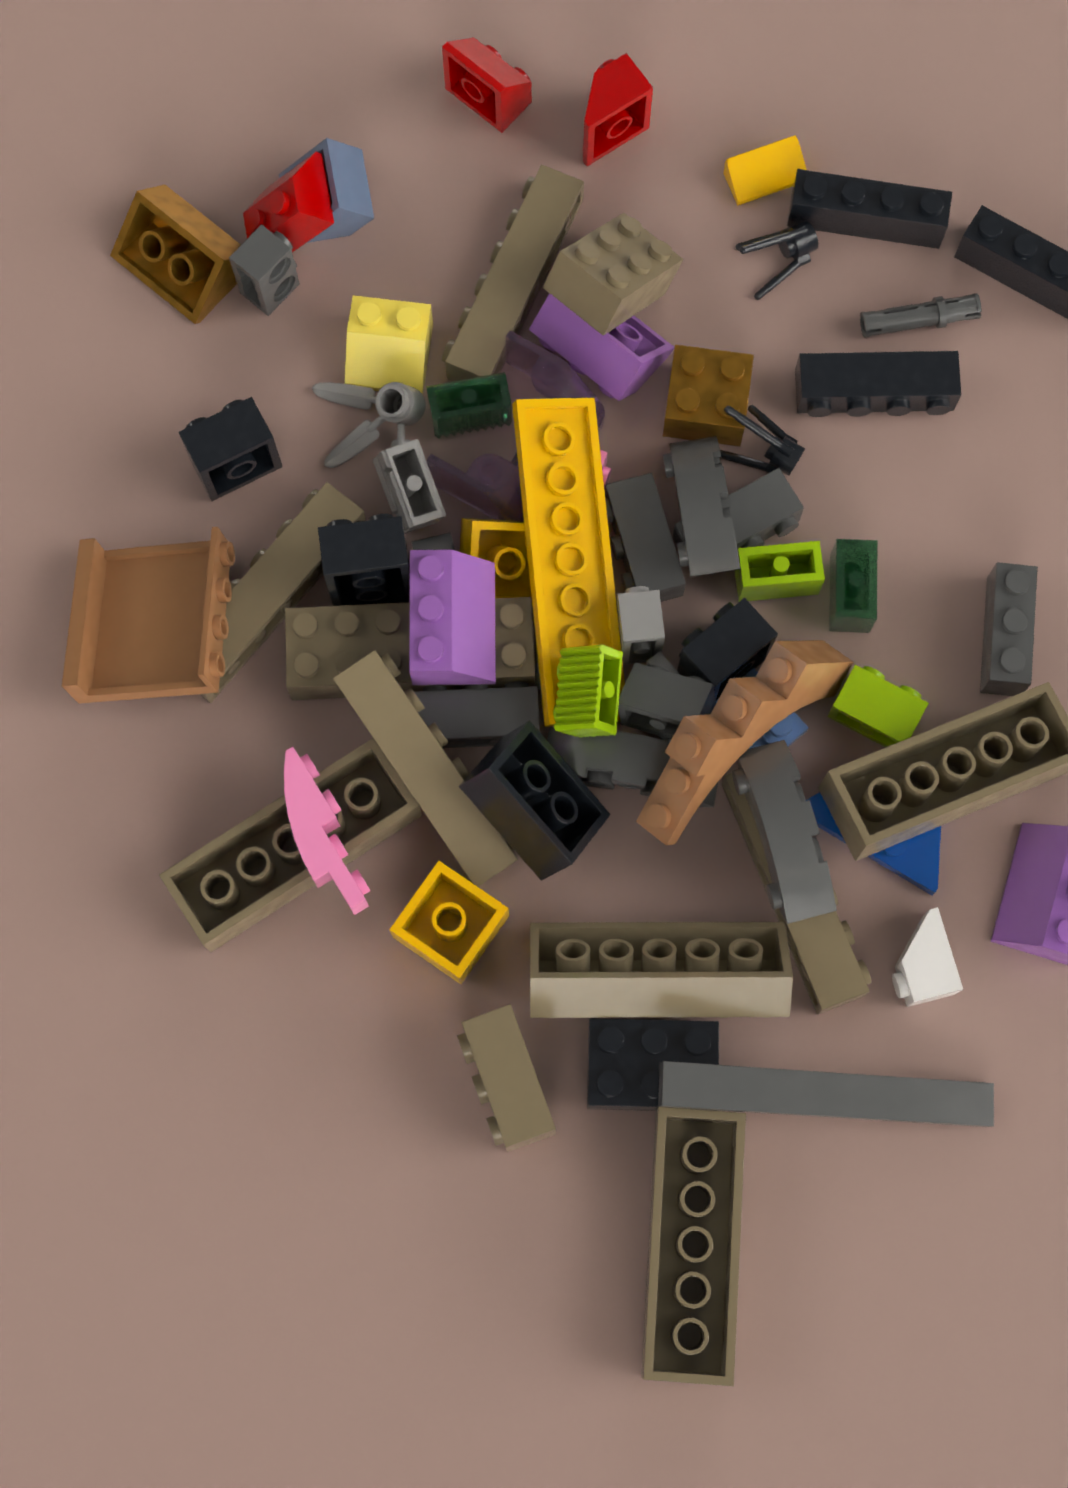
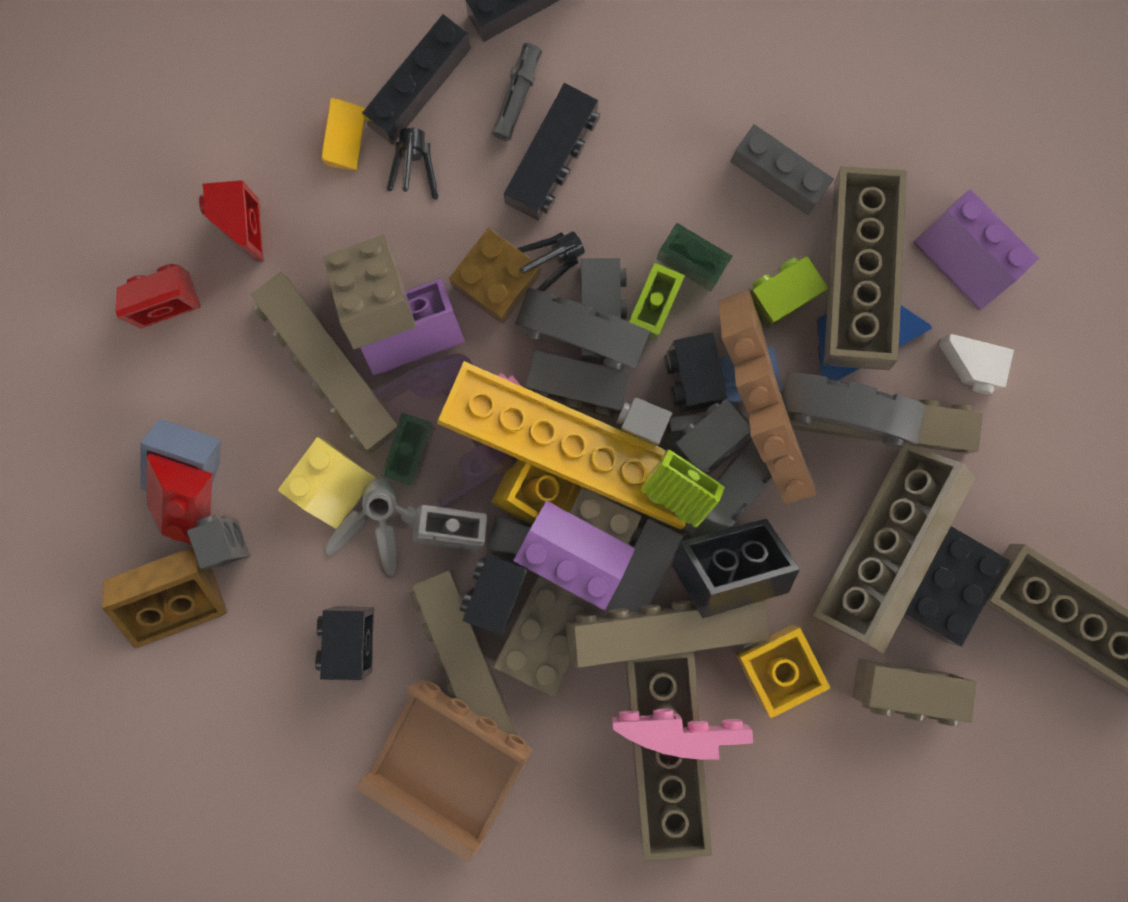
camera: 65 degrees left, 10 degrees up
(825, 1094) = (1035, 484): dark grey tile -> none

